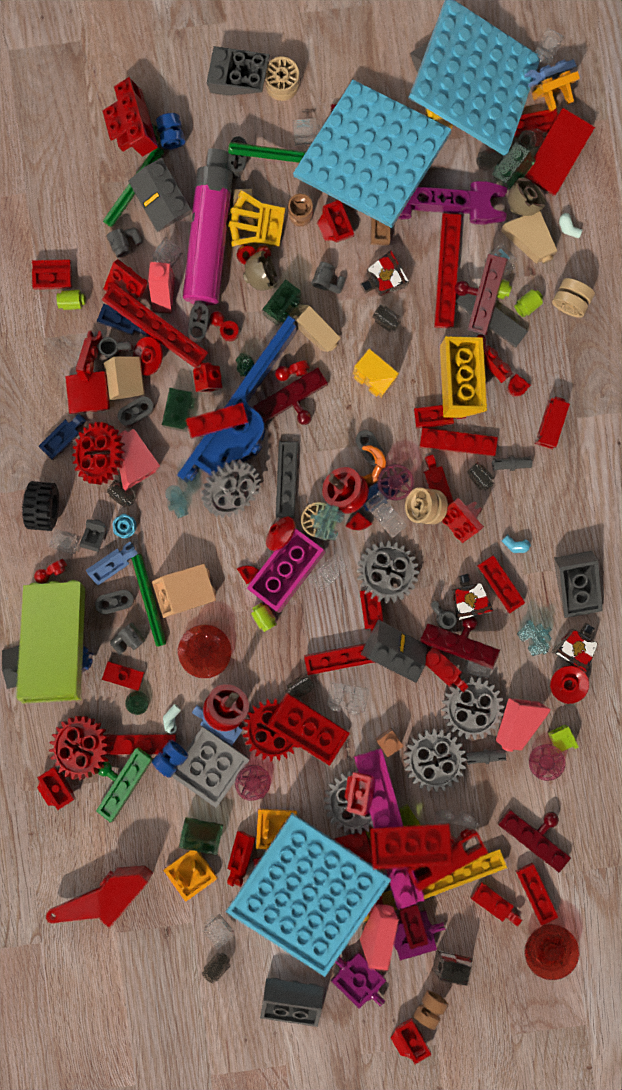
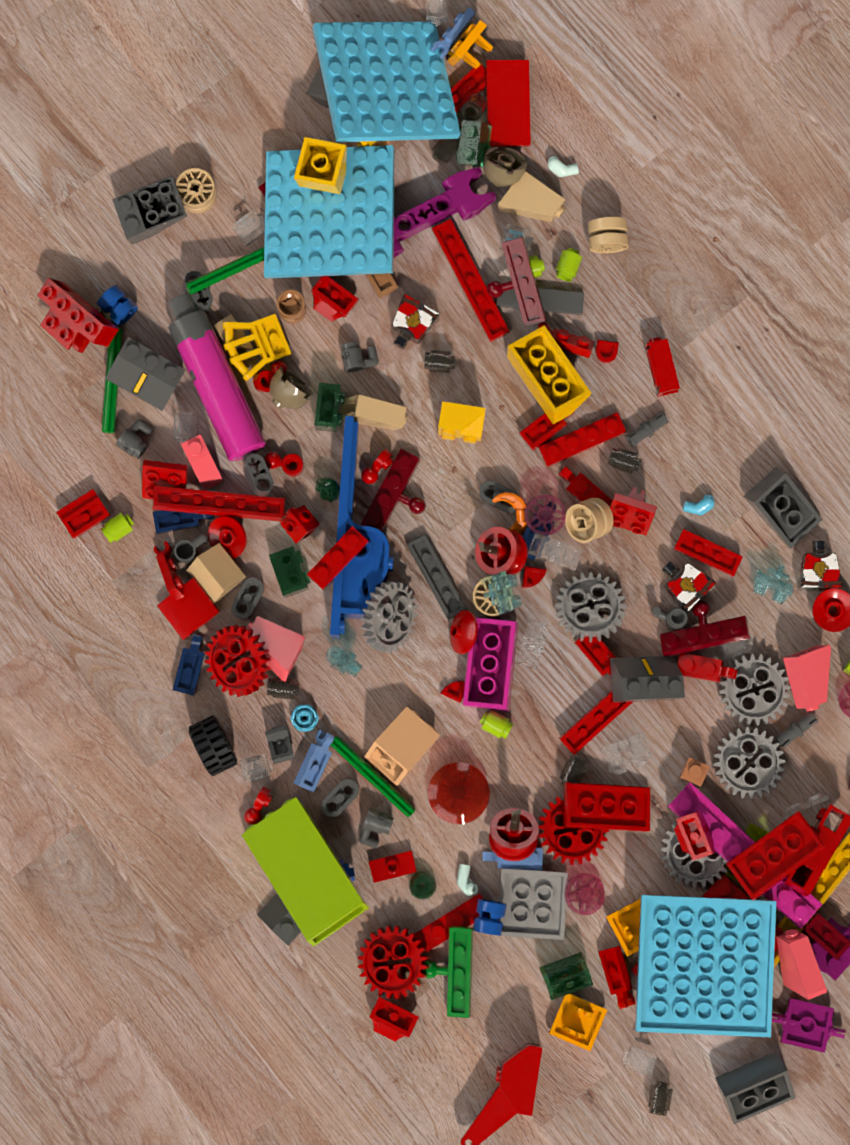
camera: 25 degrees left, 5 degrees down
(386, 110) = (321, 165): none -> yellow slope

